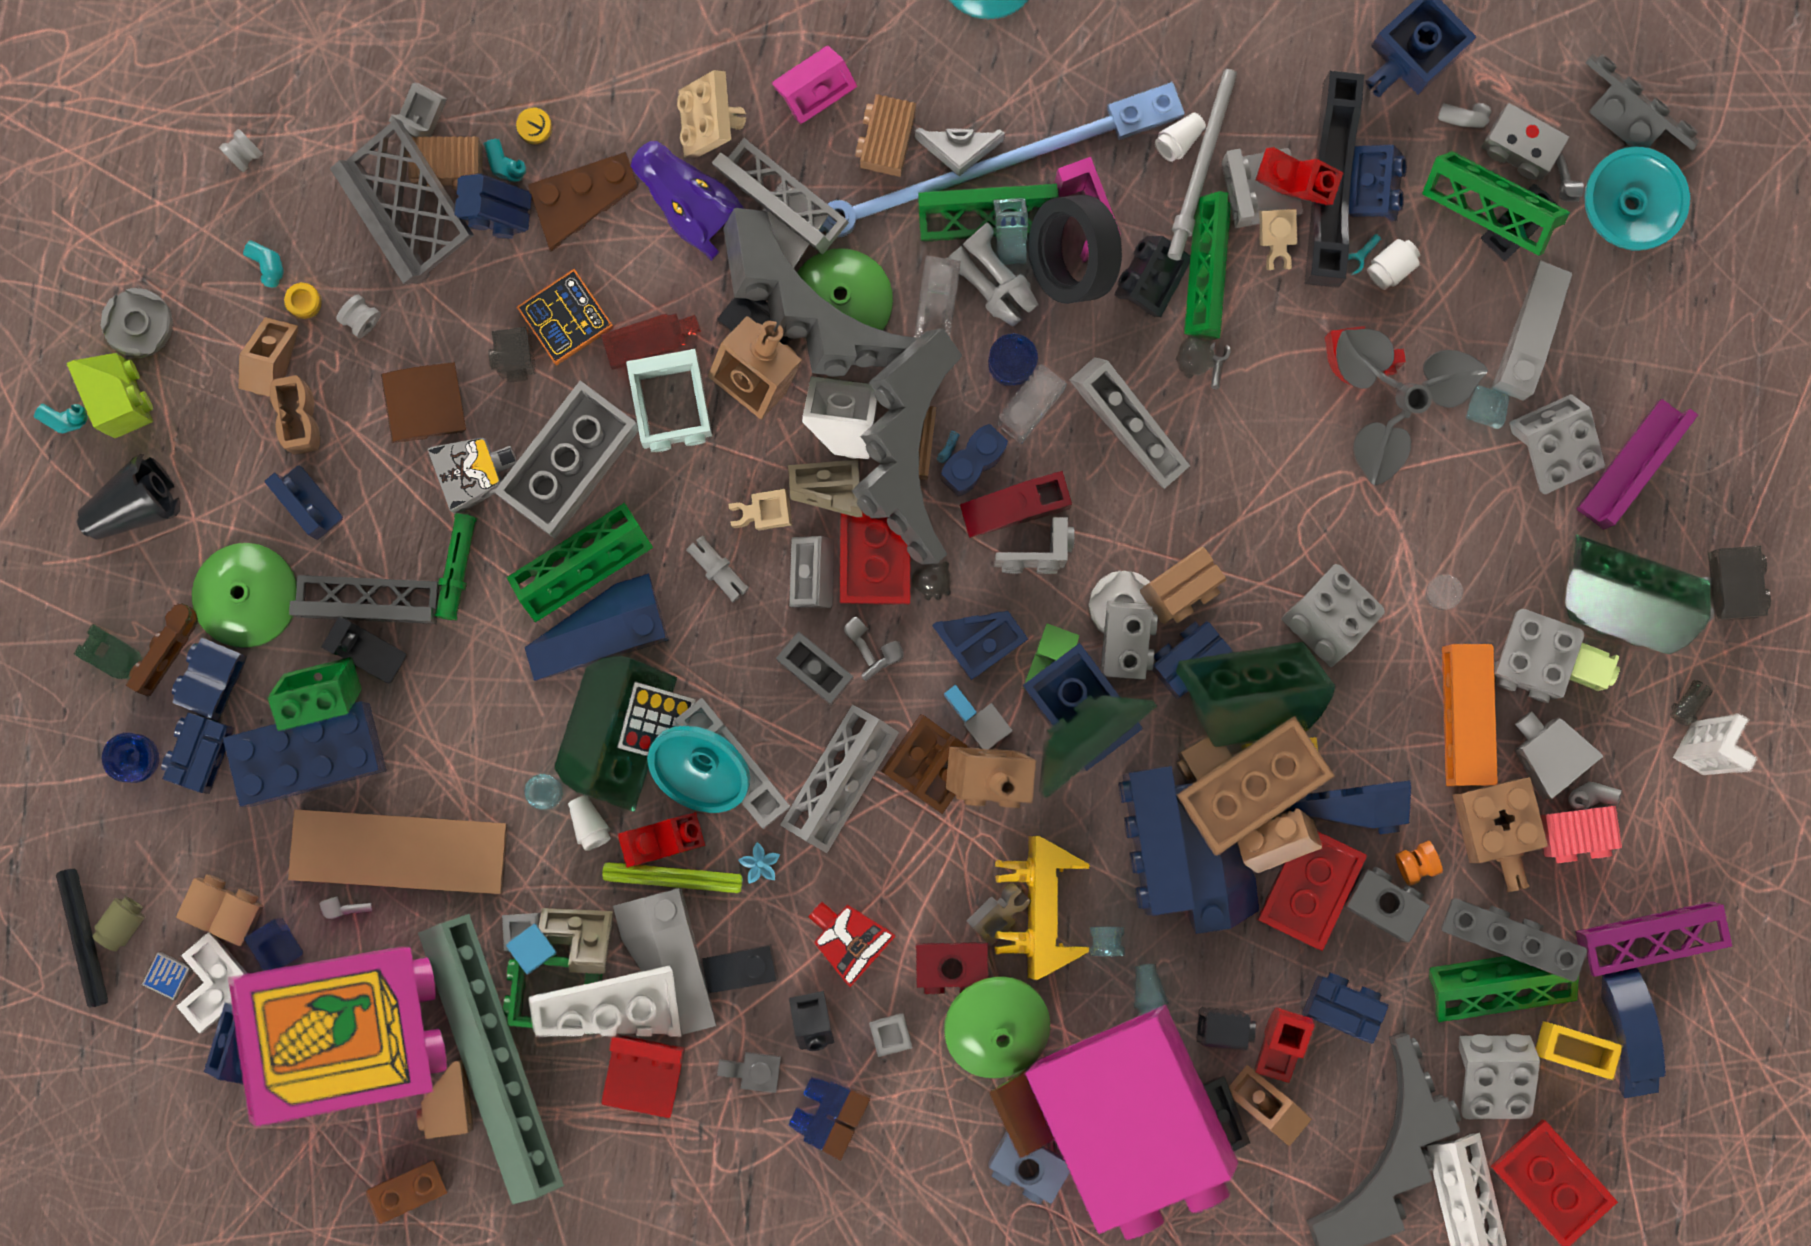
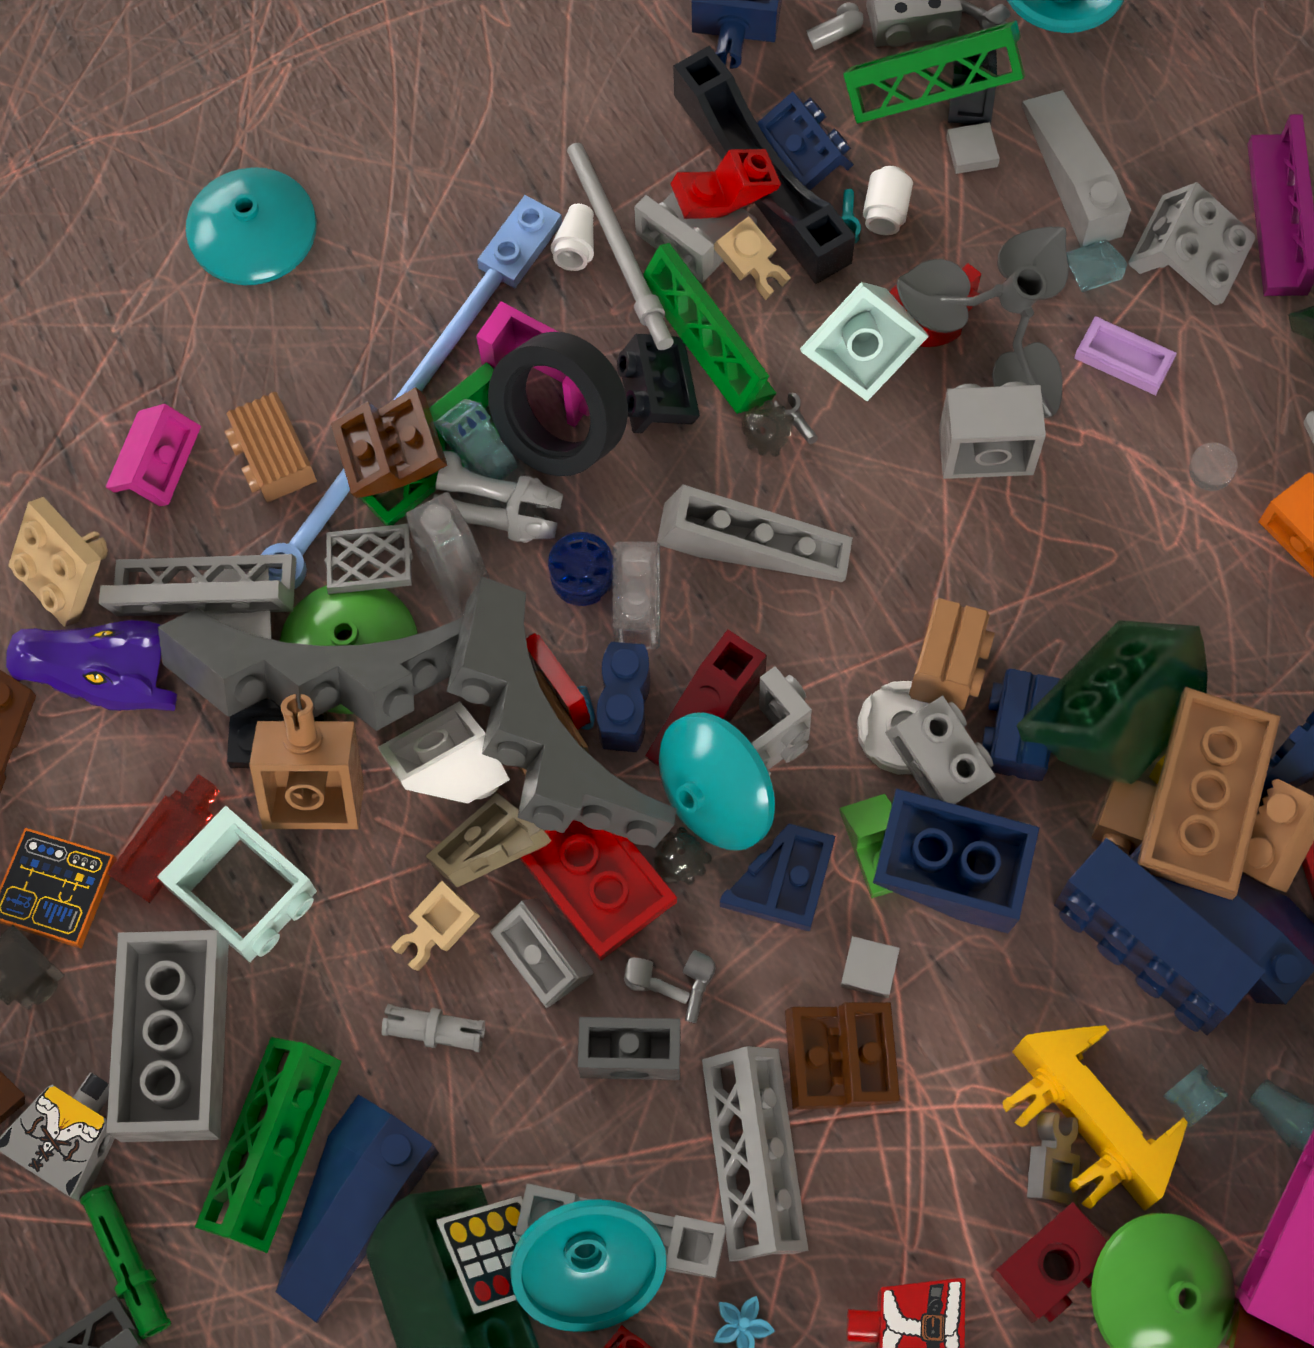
camera: 30 degrees left, 15 degrees down
(901, 235) = (362, 536): none -> light grey window
(942, 420) = (558, 680): none -> red tile
(955, 194) = (388, 444): none -> reddish brown slope
(959, 147) = (374, 389): light grey tile -> none
(960, 703) = (819, 963): dark azure tile -> none
(981, 556) = (716, 781): none -> teal dish
(990, 775) = (921, 1010): medium nougat brick -> none
(1086, 736) = (989, 880): clear green wedge -> none
(1298, 350) = (865, 339): none -> light aqua slope
(1324, 468) = (991, 430): none -> light grey brick
(1334, 615) = (1127, 571): light grey bracket -> none
(1454, 480) = (1125, 355): none -> lavender tile
(1480, 268) = (972, 148): none -> light grey tile

